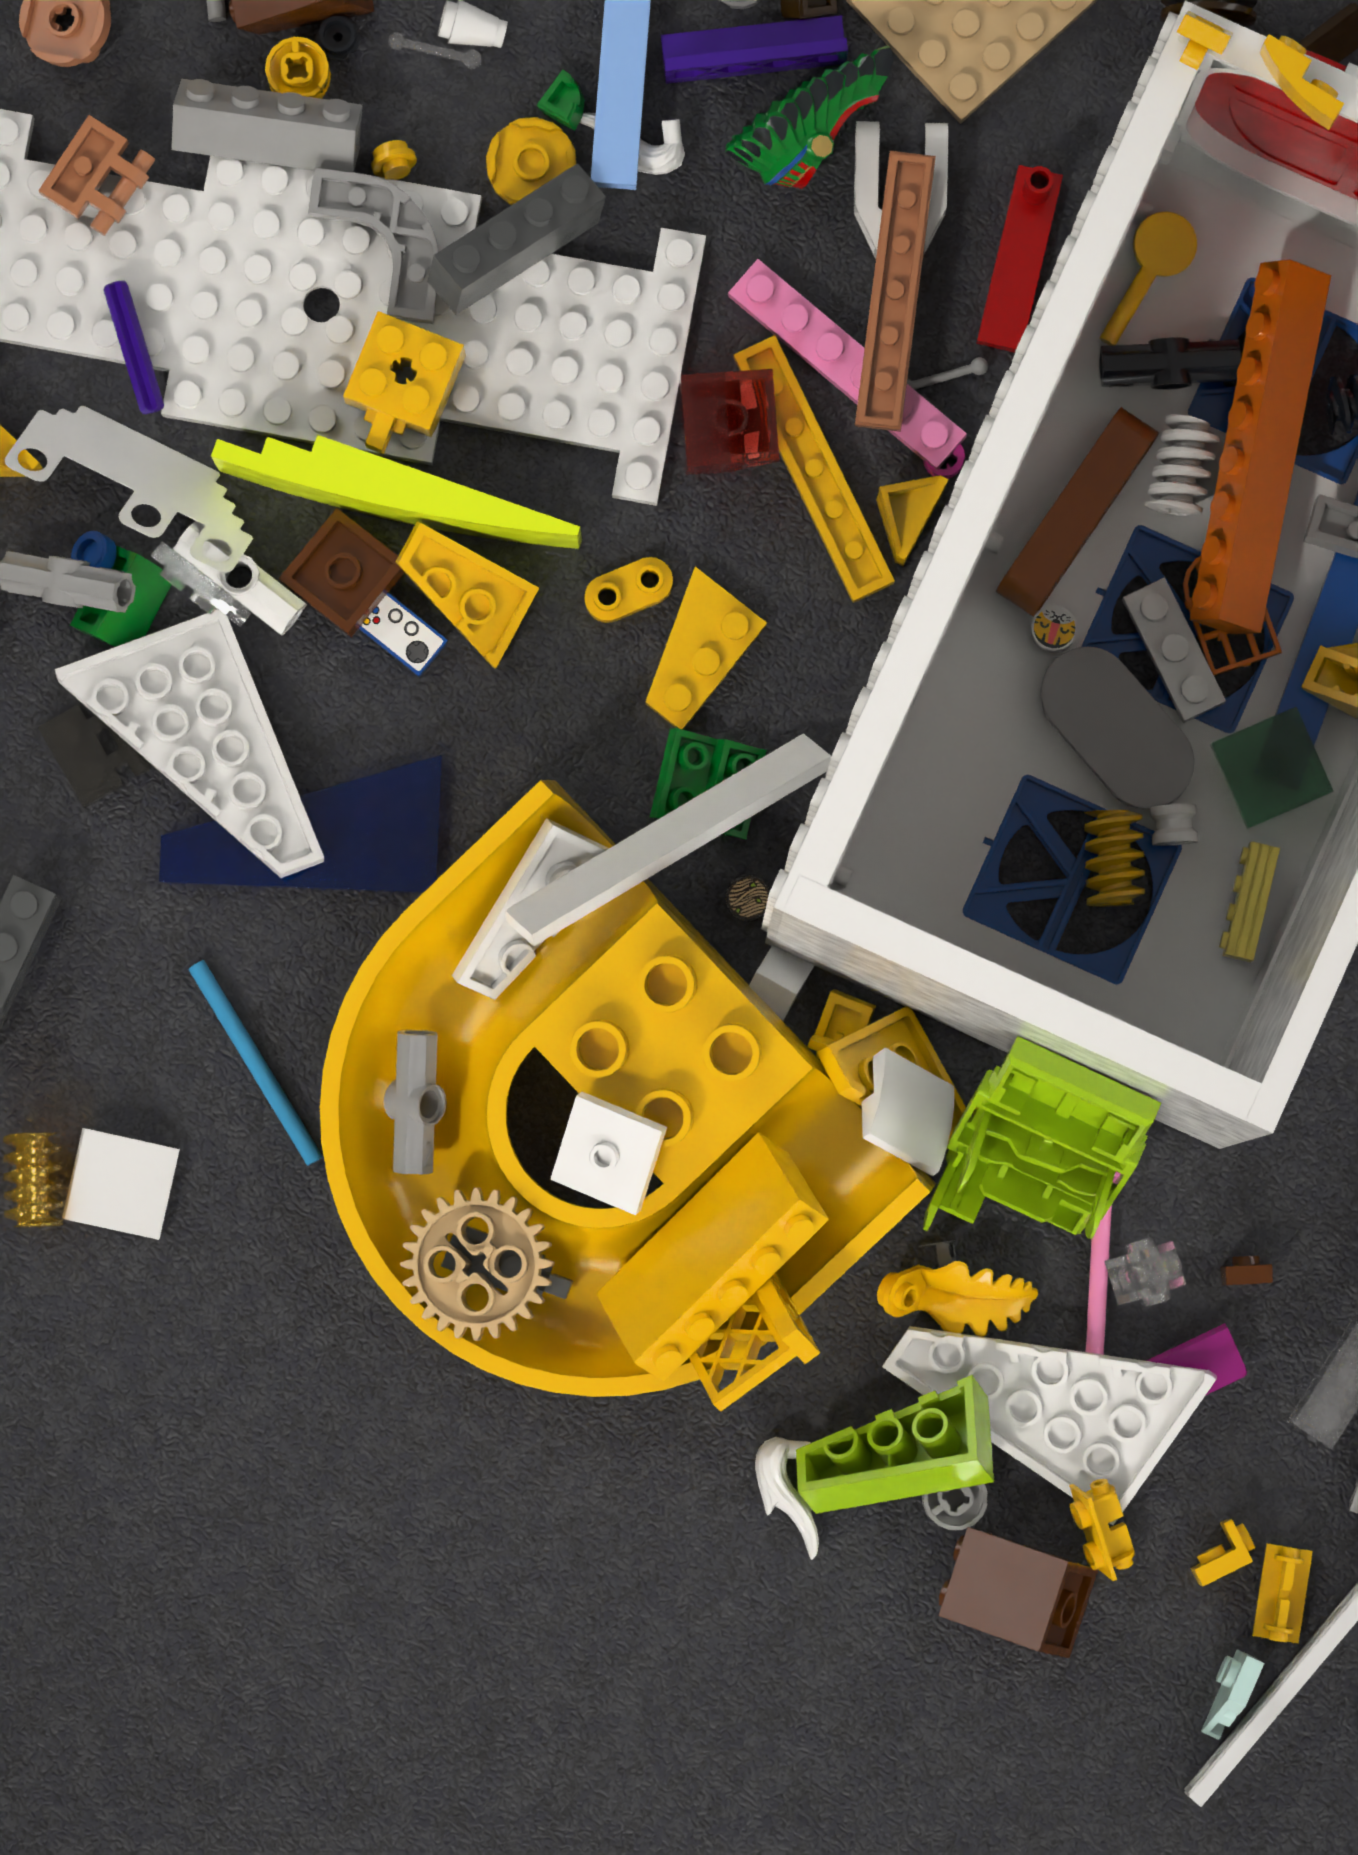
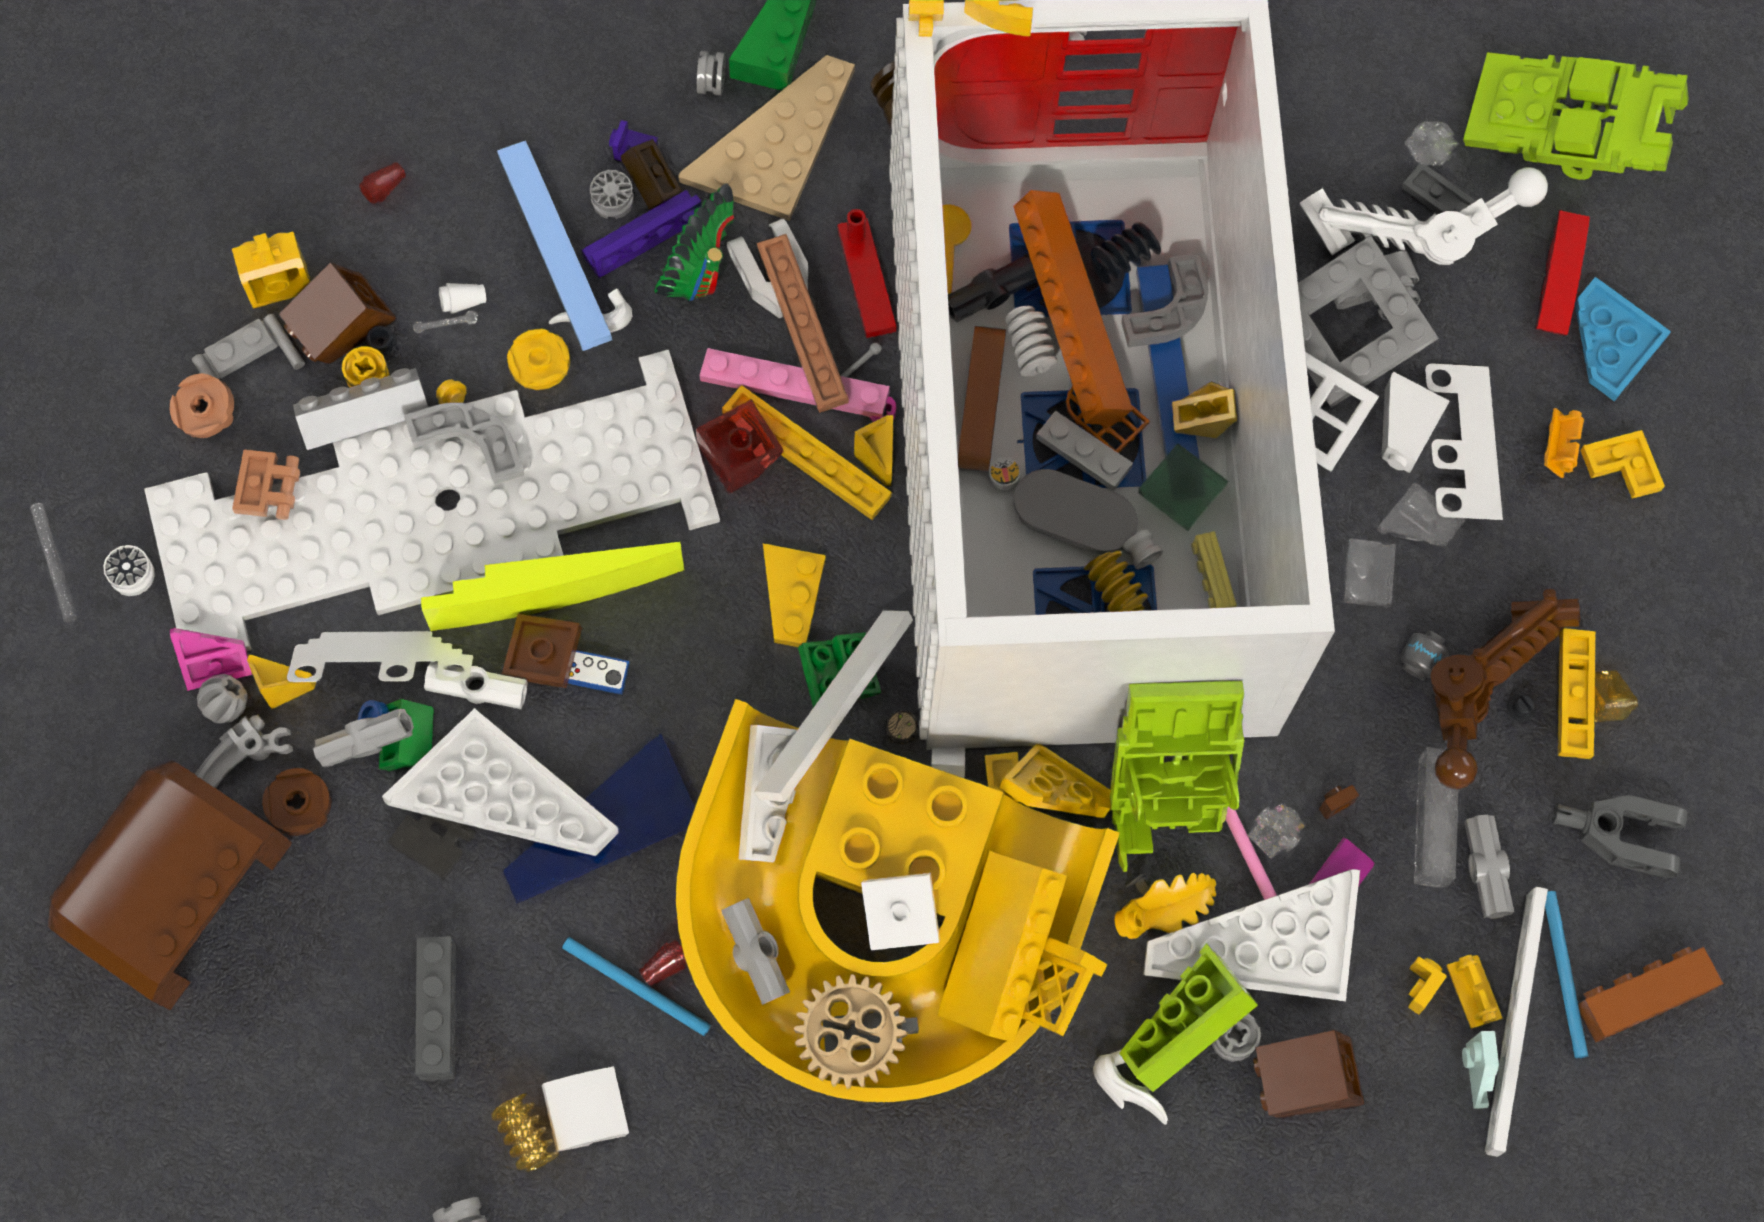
camera: 30 degrees left, 15 degrees down
(133, 347) = (339, 576): dark purple axle -> none
(206, 592) = (452, 697): clear plate -> none
(299, 1053) = (664, 963): none -> clear red cone
(399, 406) = (522, 529): yellow hinge -> none
(468, 589) = (626, 621): yellow wing -> none
(516, 239) = (552, 398): dark grey brick -> none
(563, 101) = (540, 314): green tile -> none
(629, 591) = (729, 577): yellow plate -> none
(908, 1112) = (1076, 798): white slope -> none
(1104, 1545) = (1349, 1016): yellow hinge -> none

